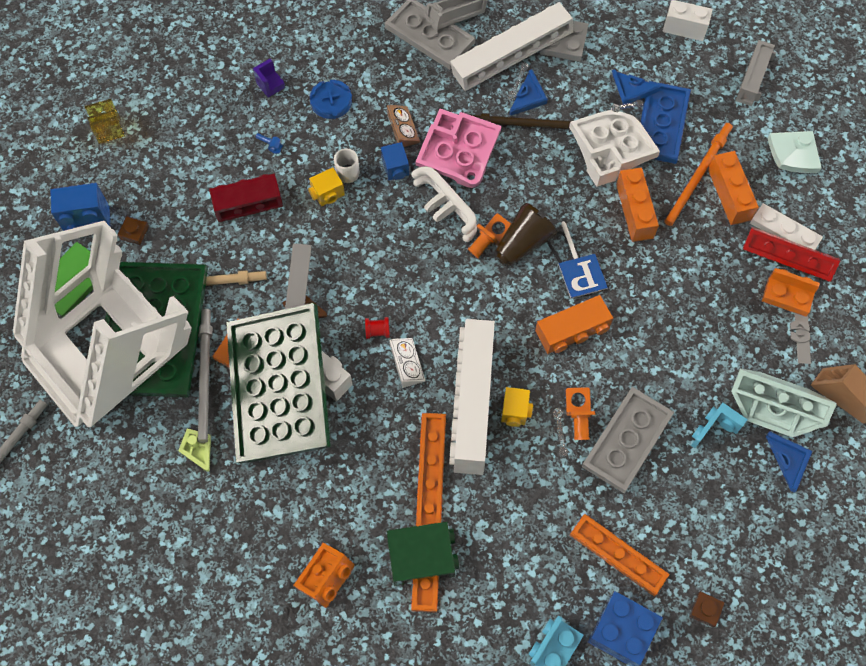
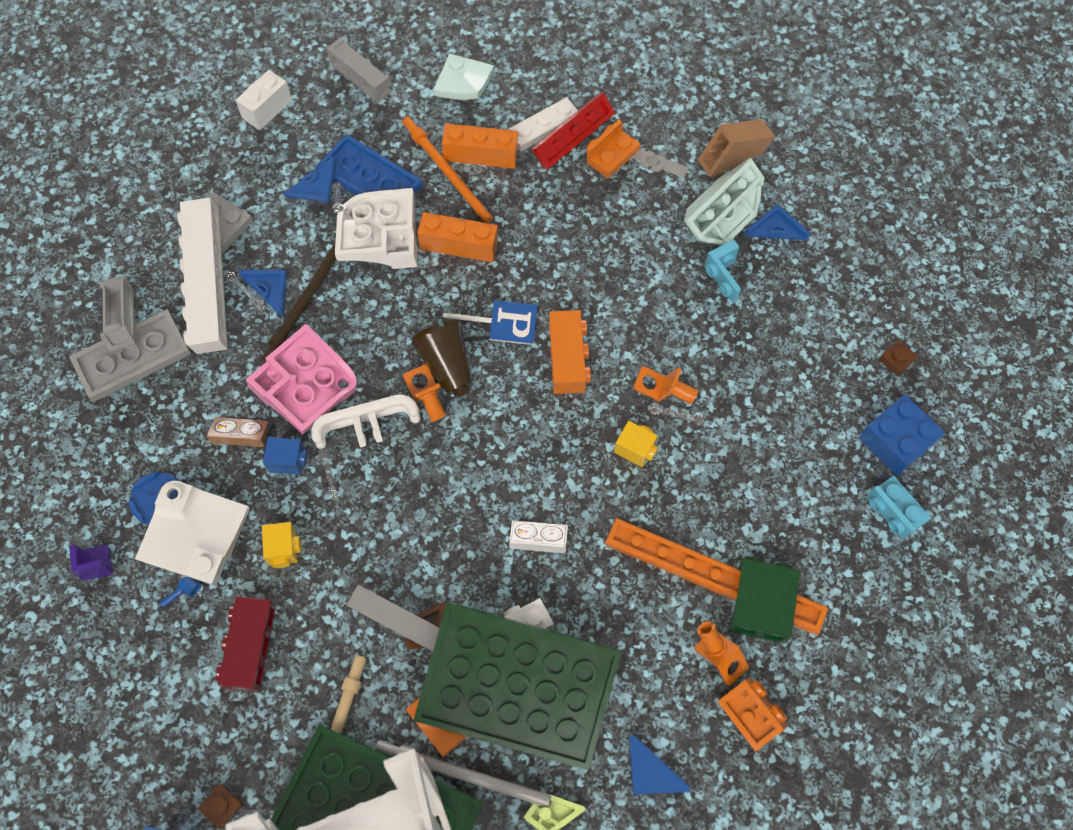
camera: 70 degrees left, 0 degrees up
(105, 124) = (44, 794): clear yellow piece -> none
(250, 511) = (650, 773): none -> blue tile
(312, 129) = (192, 532): none -> white slope
(345, 157) = (259, 499): white piece -> none
(363, 531) = (720, 652): none -> orange bracket
(377, 328) = (486, 552): red bush -> none
(381, 207) = (324, 453): none -> clear hinge
(472, 397) = (614, 478): white brick -> none
(619, 555) = (821, 412): orange tile -> none
(627, 440) = (710, 354): light grey plate -> none

